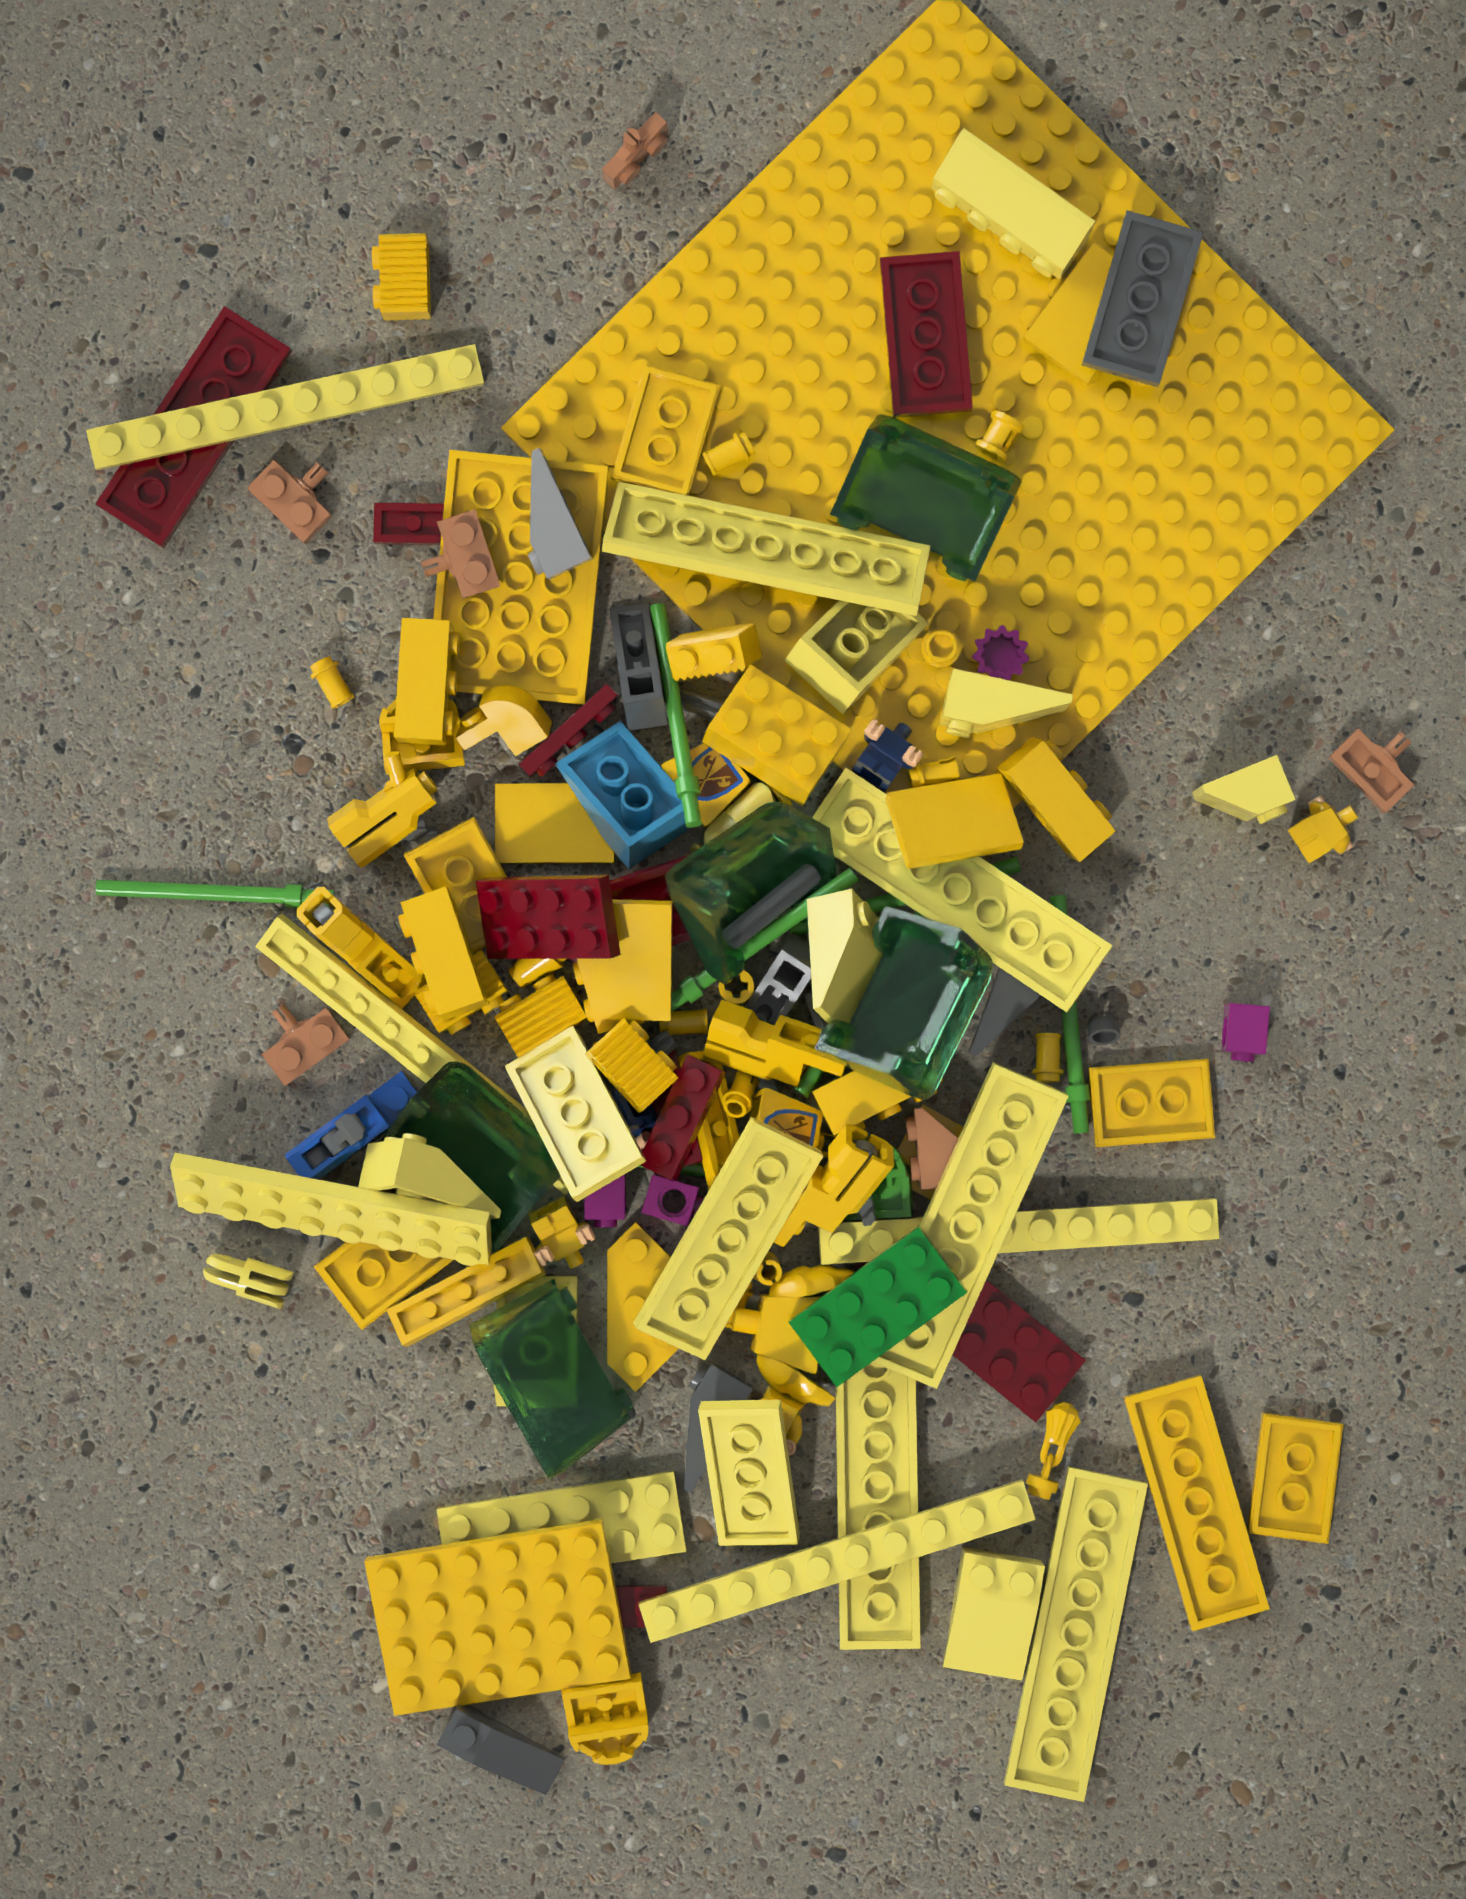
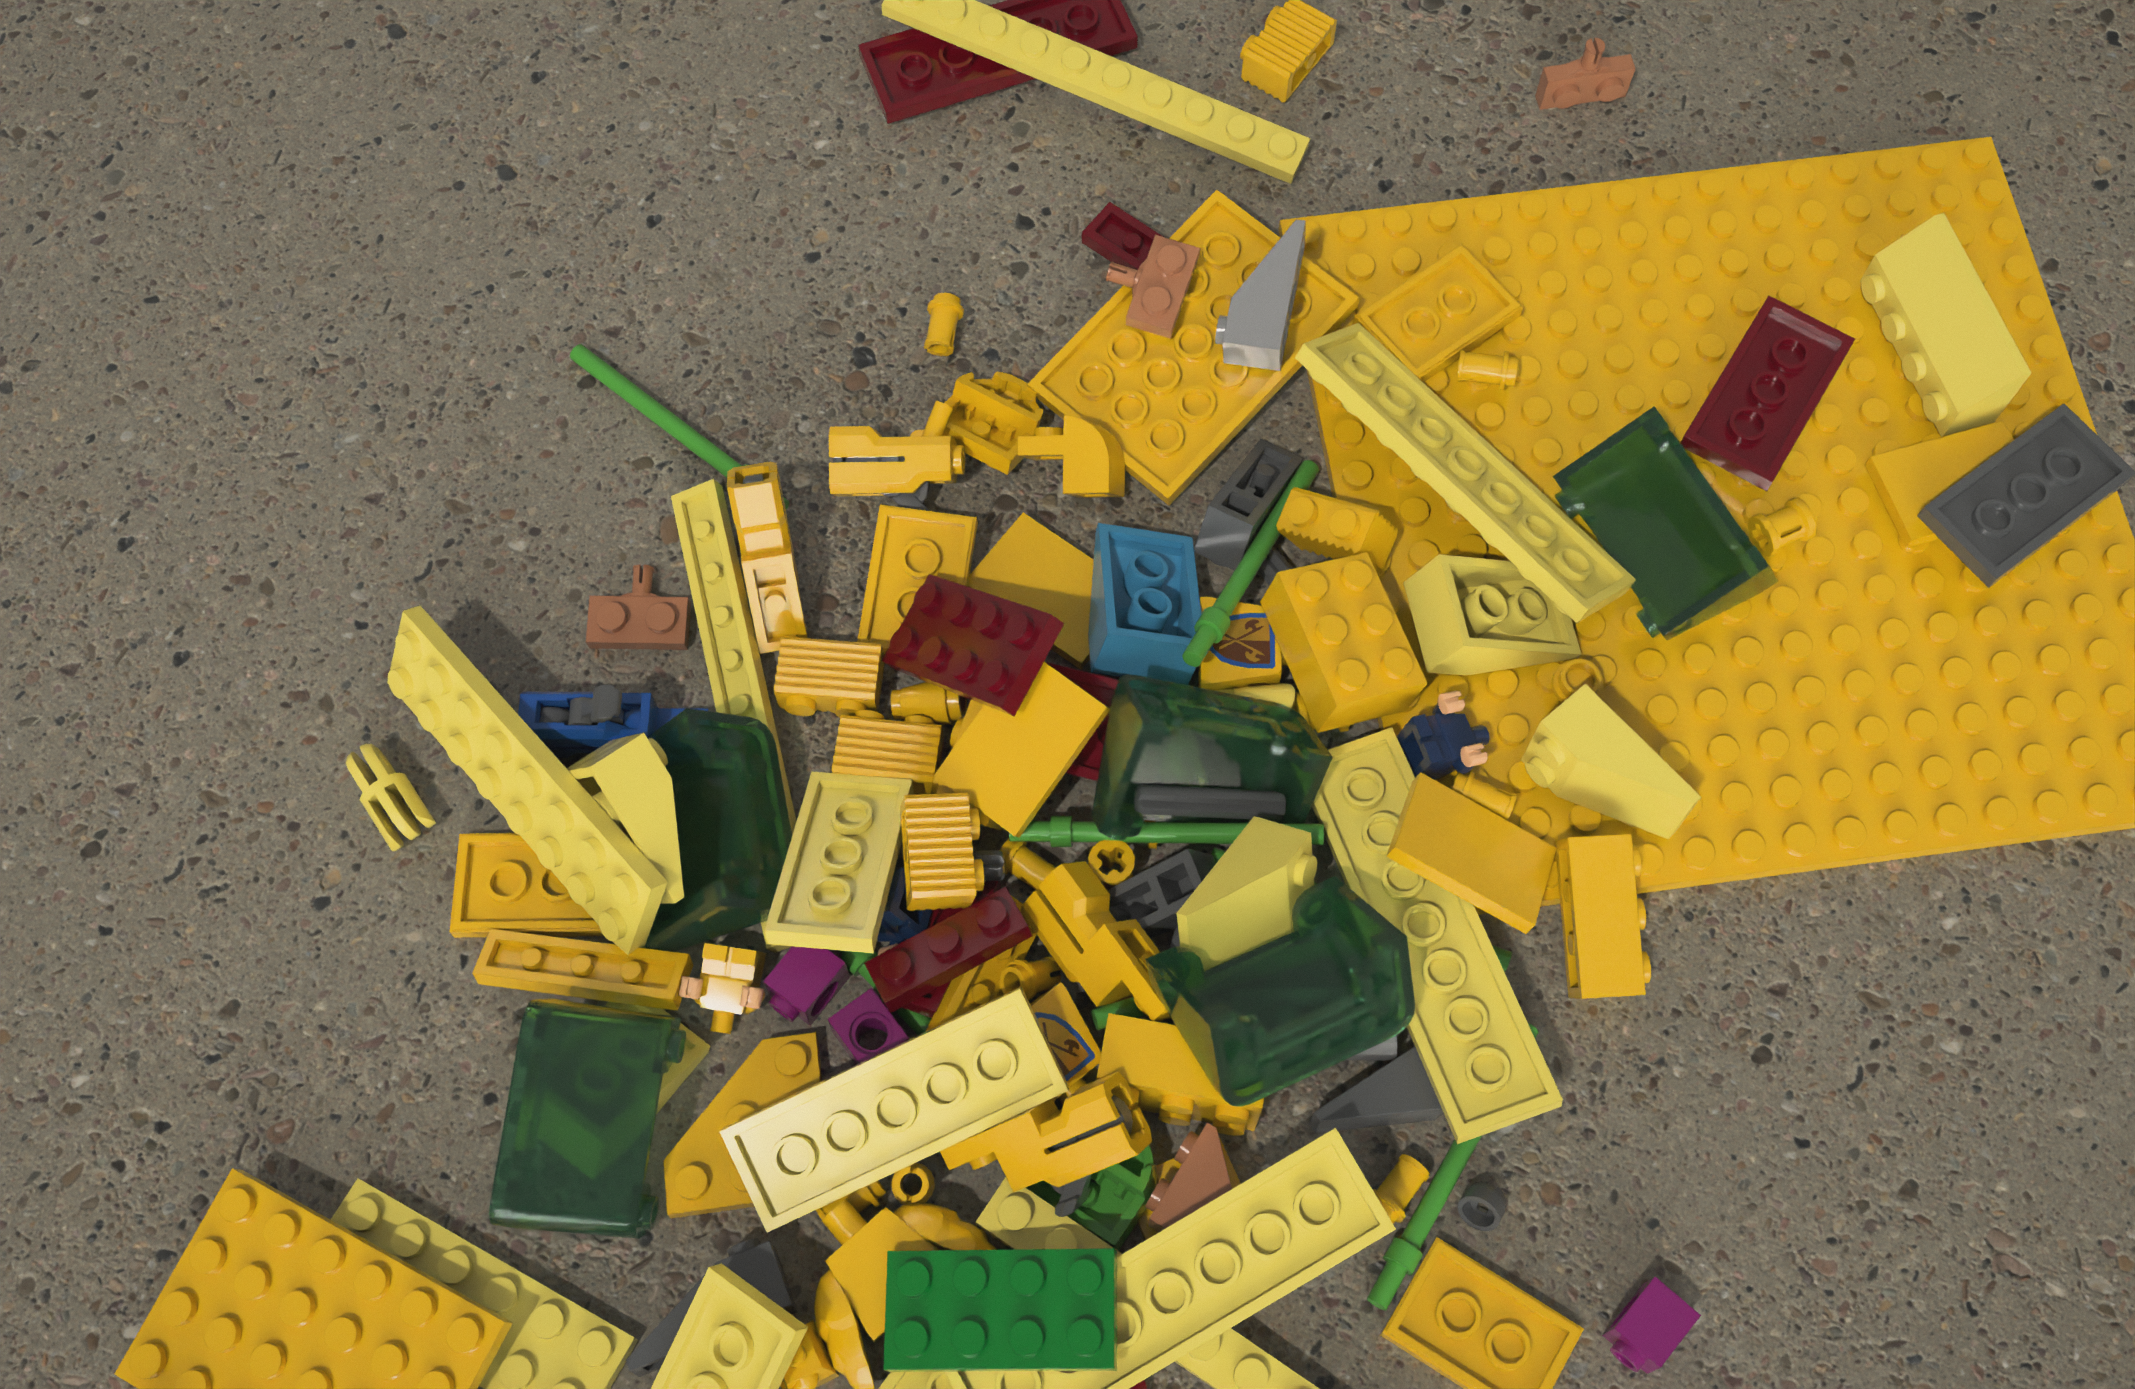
camera: 30 degrees right, 20 degrees down
(292, 498) = (1038, 158): nougat plate -> none
(425, 681) = (1029, 364): yellow brick -> none
(442, 954) = (839, 613): yellow brick -> none
(570, 732) = (1147, 510): dark red plate -> none
(1001, 653) = (1648, 720): magenta piece -> none
(1250, 793) = (1828, 1057): light yellow slope -> none
(1323, 830) = (1890, 1167): yellow piece -> none
(1373, 768) = (1992, 1143): nougat plate -> none

